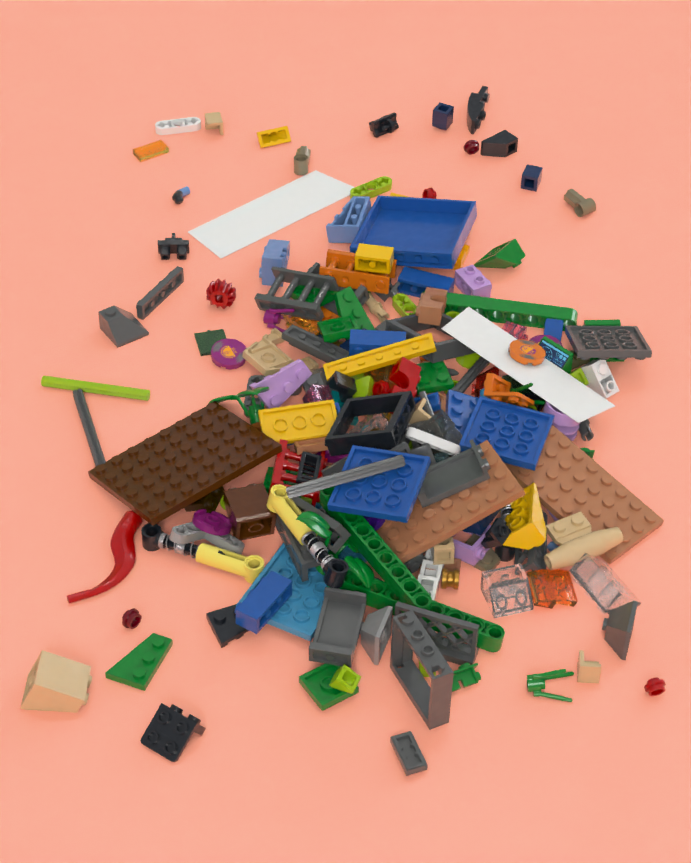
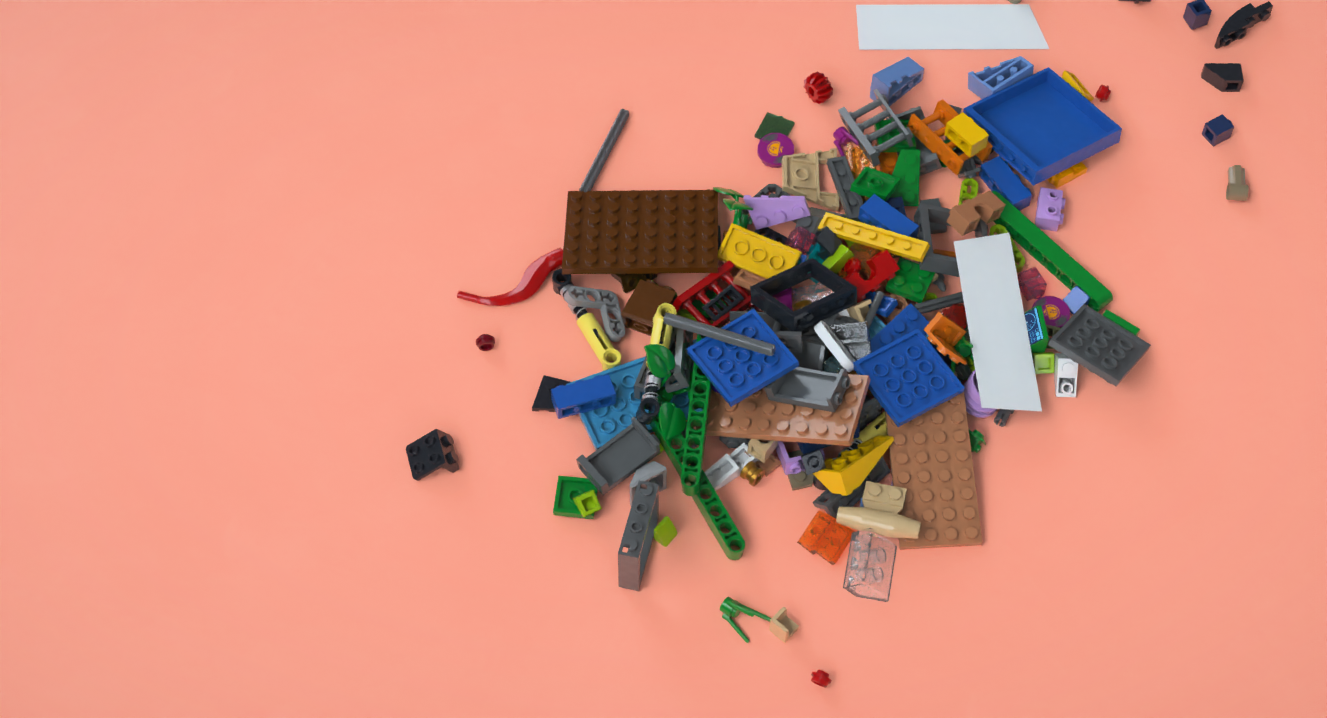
camera: 40 degrees right, 15 degrees up
(56, 684) = (385, 361): tan slope -> none
(96, 388) = (642, 116): lime axle -> none
(120, 326) = (714, 69): dark grey slope -> none
(141, 663) = (463, 383): green wing -> none
(160, 292) = (772, 55): dark grey plate -> none
(173, 246) = (827, 13): black hips -> none
(212, 523) = (612, 298): magenta tile -> none
(376, 308) = (941, 181): tan pin -> none
(381, 185) = (1063, 50): lime beam -> none
(408, 753) = (580, 594): dark grey plate -> none
(452, 649) = (686, 516): dark grey fence -> none
(466, 675) = (684, 562): green hinge -> none
(471, 147) = (1195, 63): dark red plate -> none
(502, 256) = (1104, 197): green slope -> none
(506, 590) = (783, 515): clear slope -> none
(526, 352) = (1009, 310): orange tile -> none
(620, 628) = (841, 612): dark grey slope -> none

